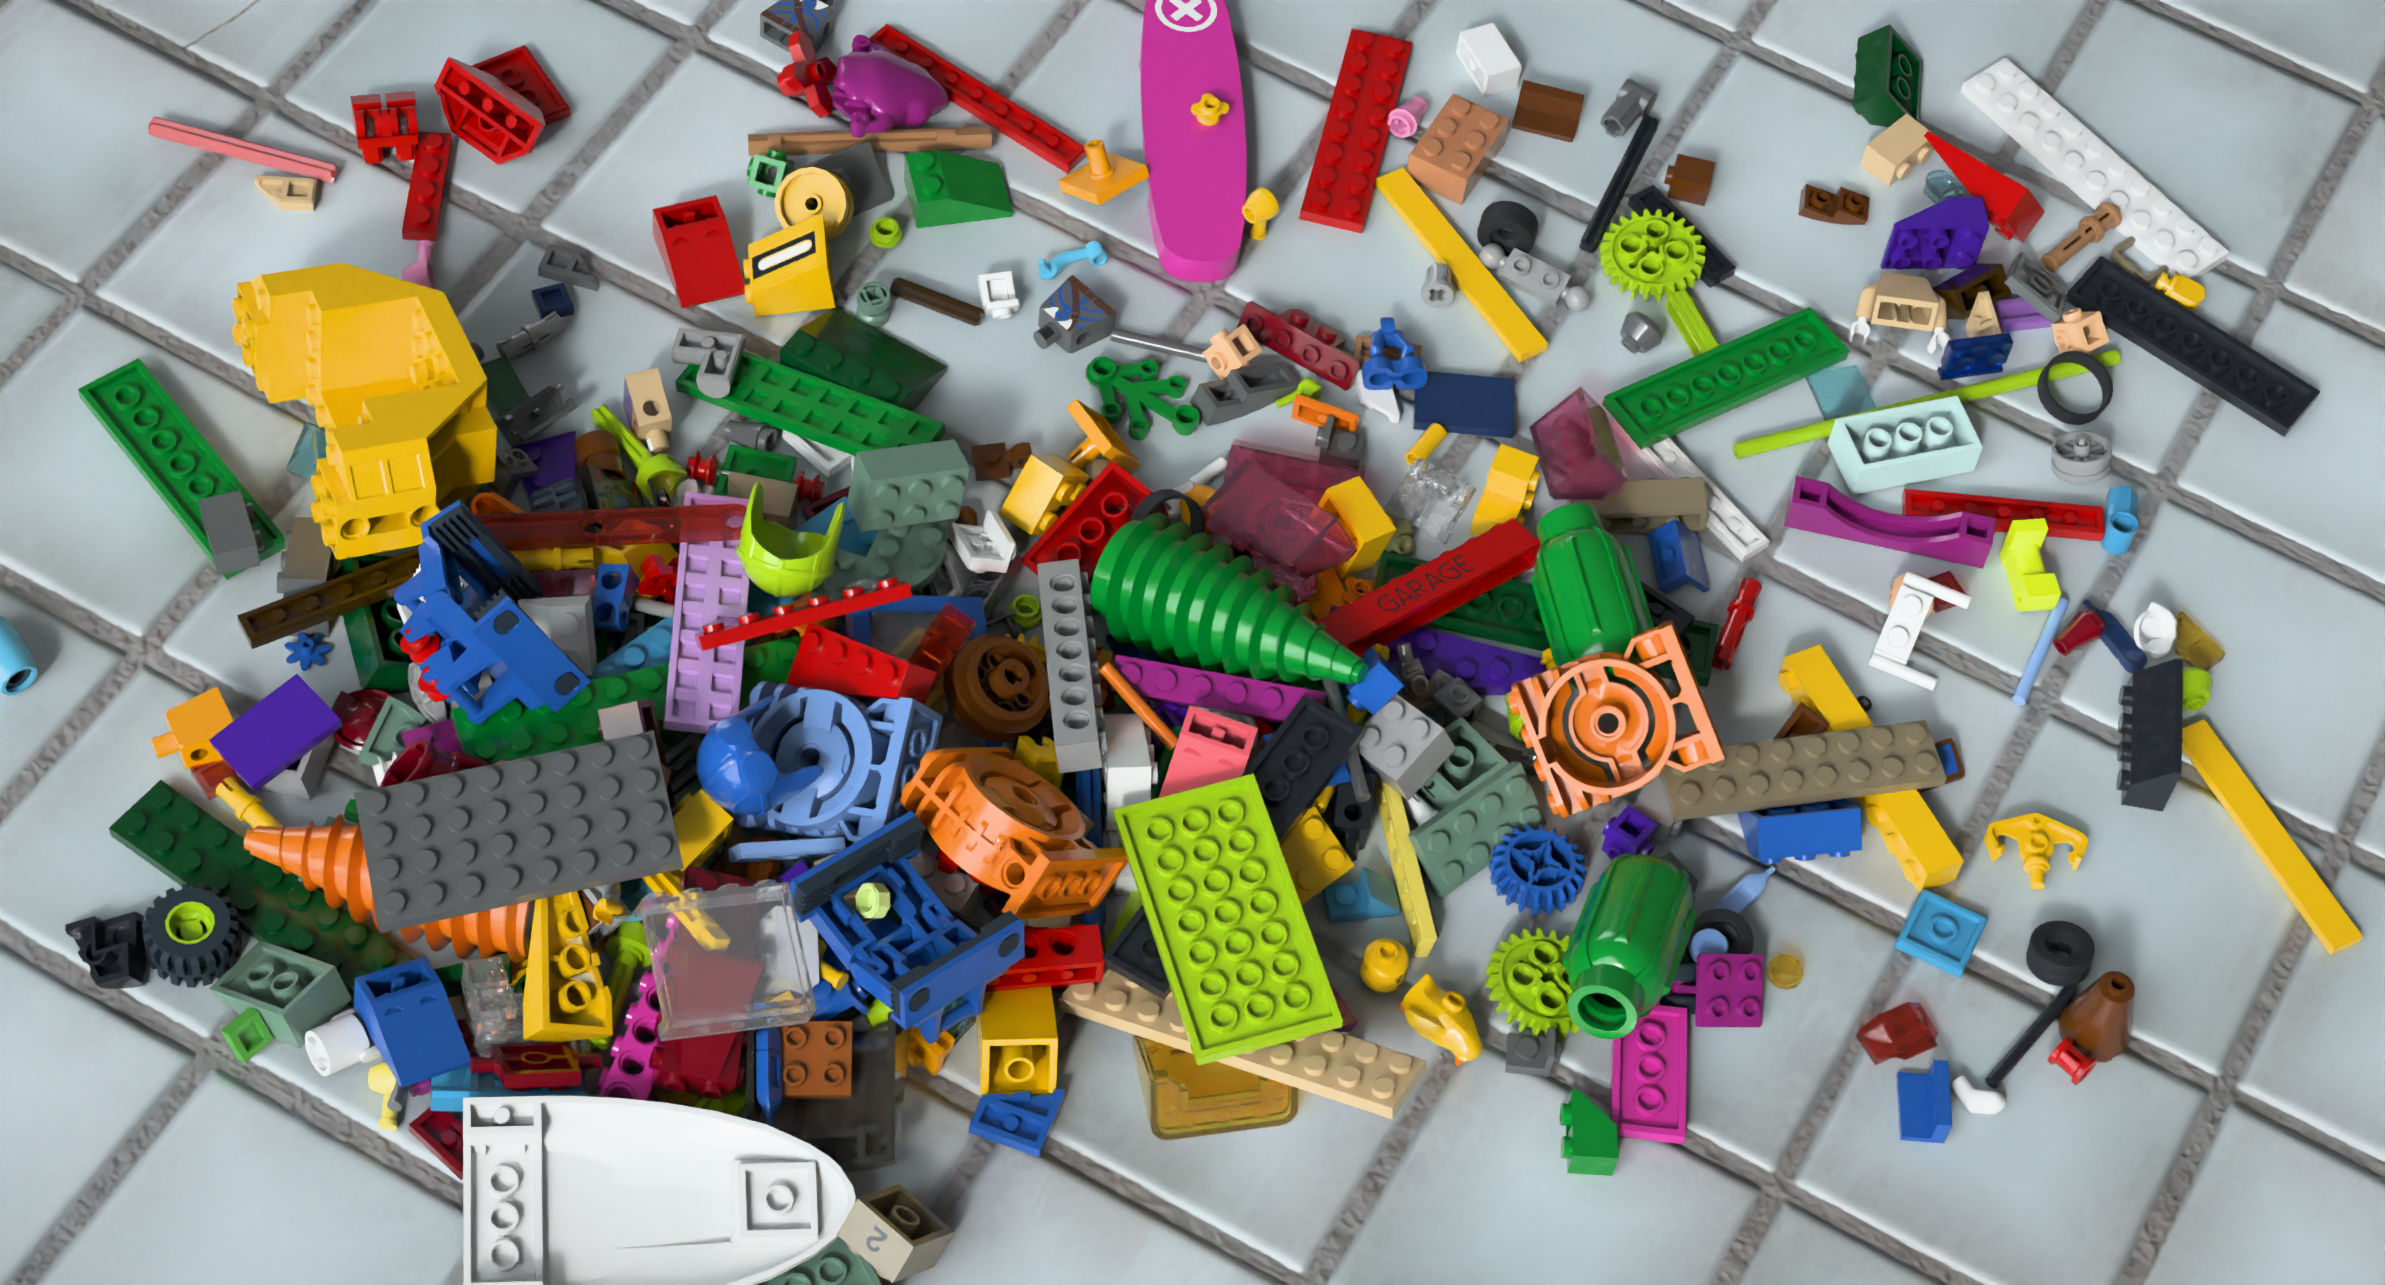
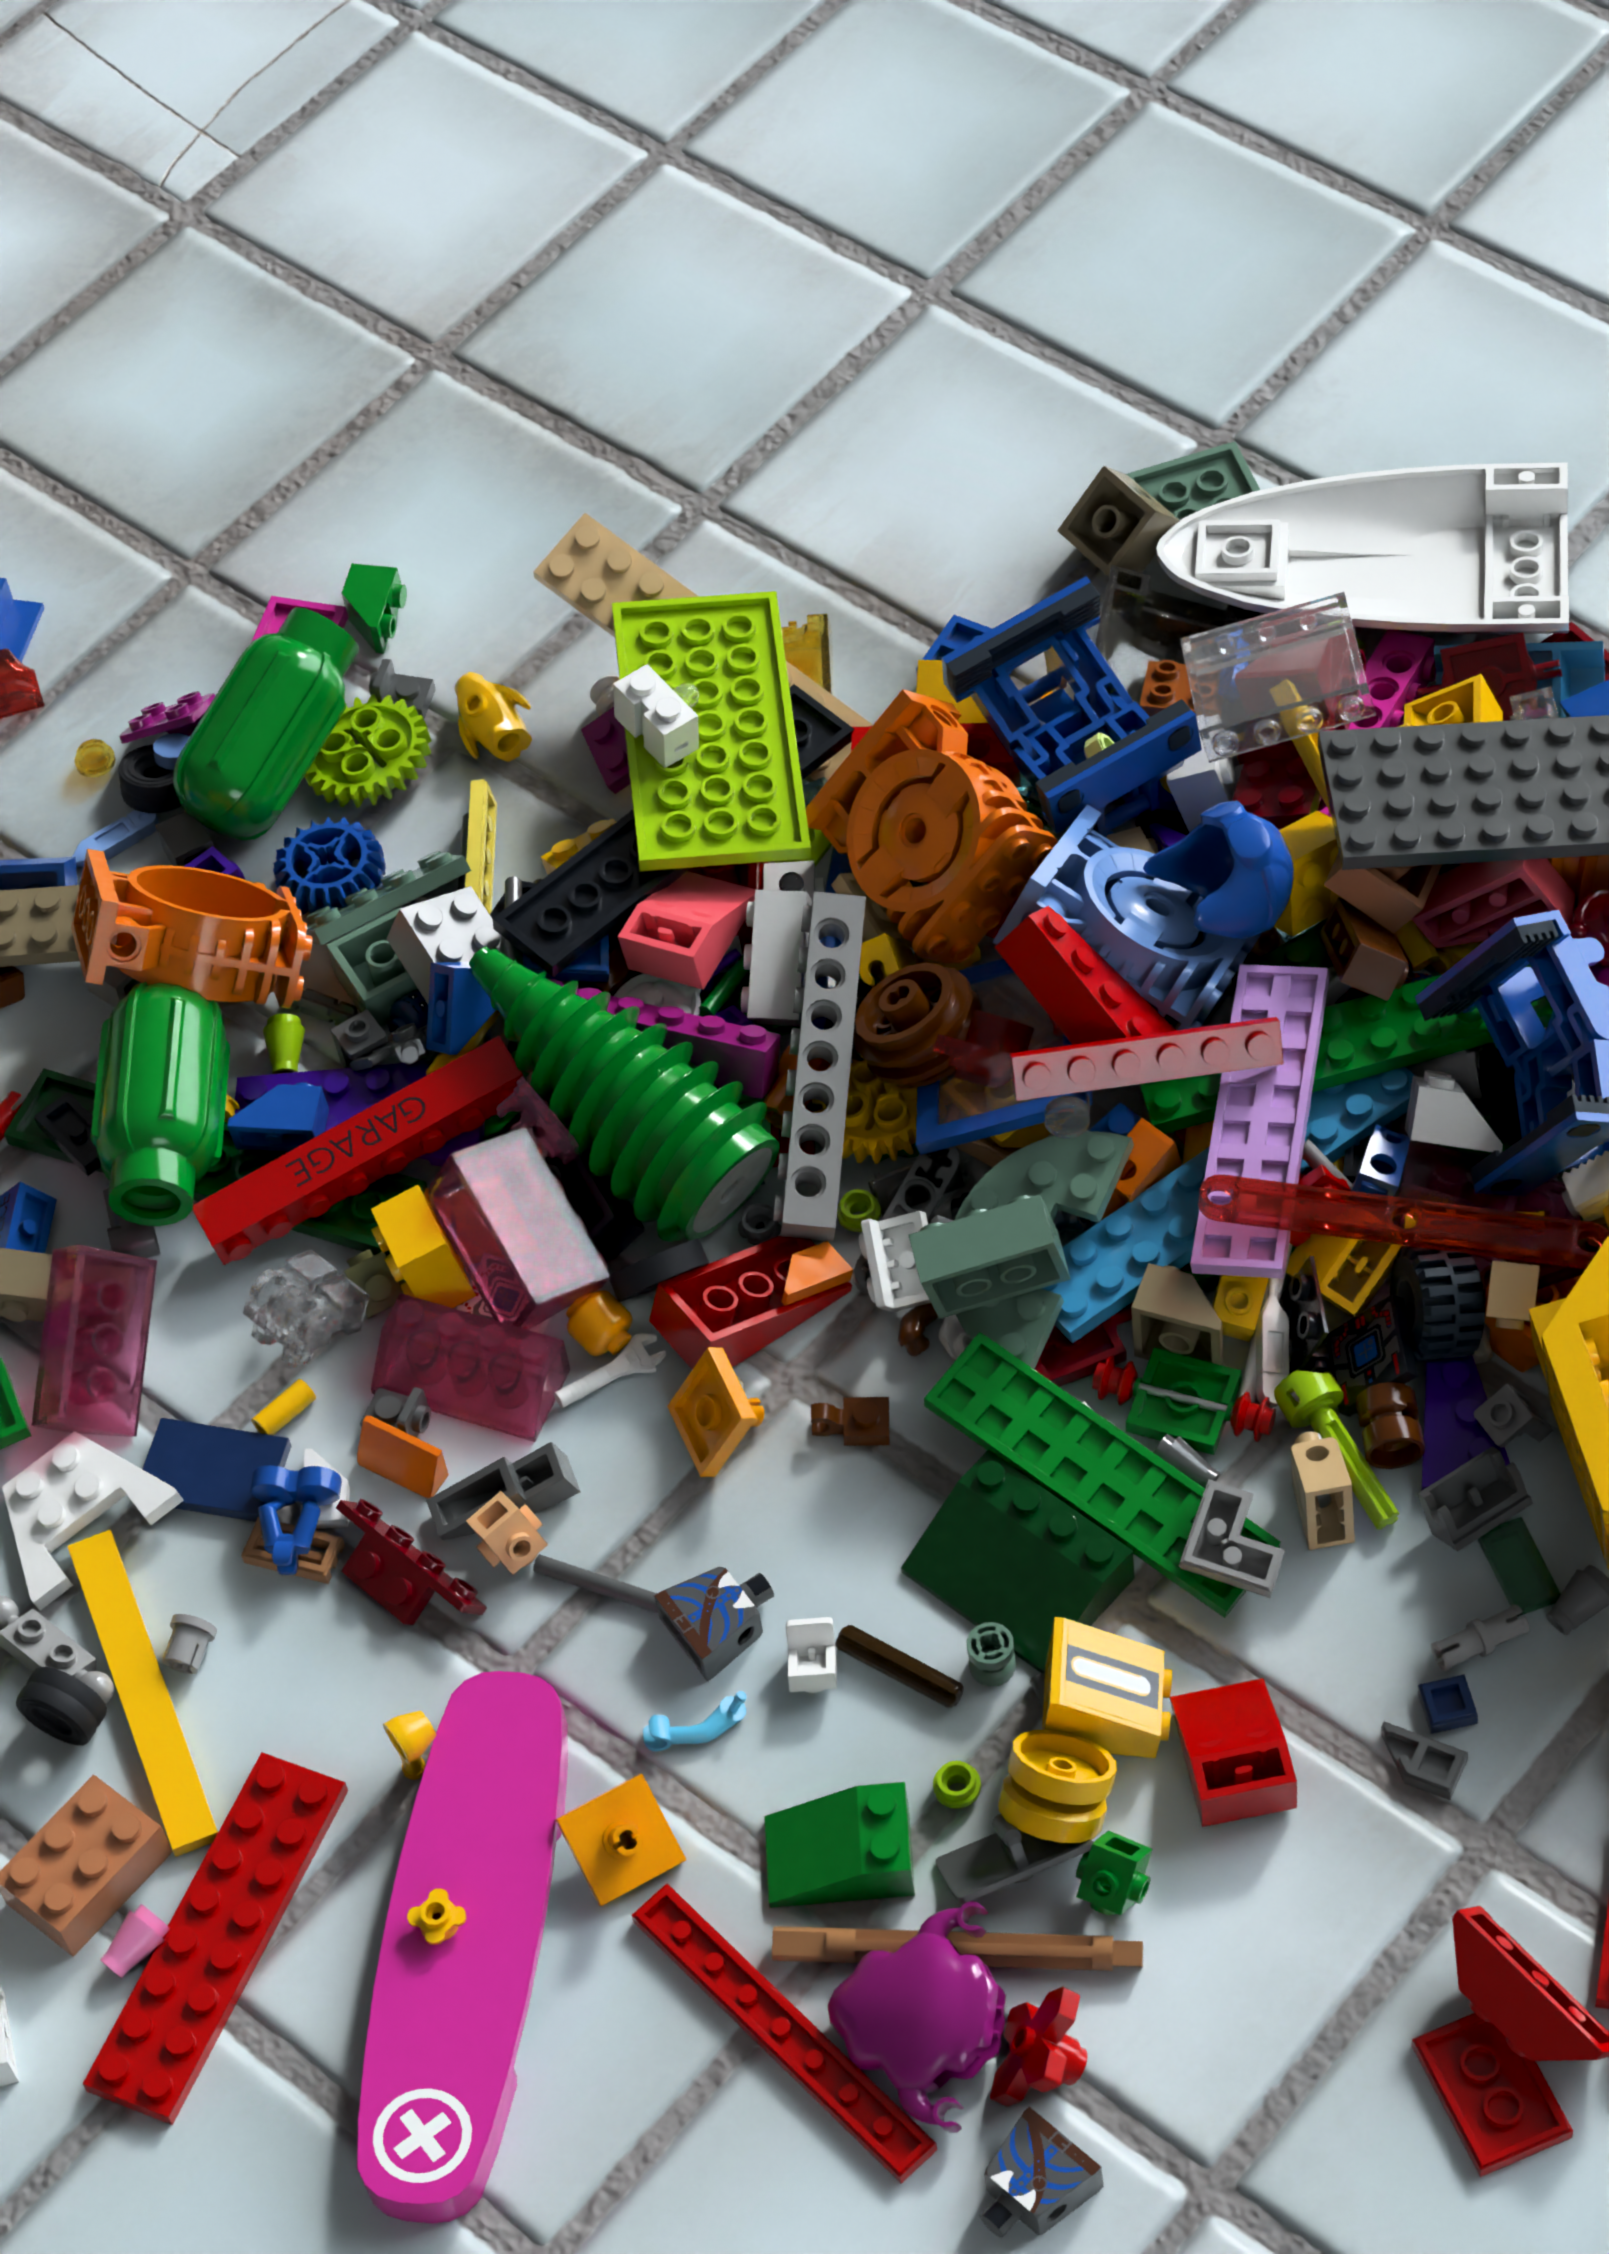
camera: 155 degrees left, 0 degrees up
(509, 493) = (1512, 1293): none -> tan brick
(782, 559) = (1155, 1142): lime piece -> none
(1041, 490) = (799, 1338): yellow brick -> none
(1051, 545) = (814, 1272): none -> orange tile
(1139, 705) = (749, 1006): orange bar -> none
(1140, 393) = (645, 1507): green plant -> none
(1266, 886) = (659, 713): none -> white piece
(1307, 388) = (414, 1498): lime hand -> none
(1361, 900) = (521, 854): dark azure slope -> none
(1384, 965) = (536, 770): yellow head -> none
(1494, 625) = (281, 1118): none -> blue slope
(1507, 489) = (205, 1305): yellow brick -> none
(1557, 371) = (64, 1495): none -> white wing

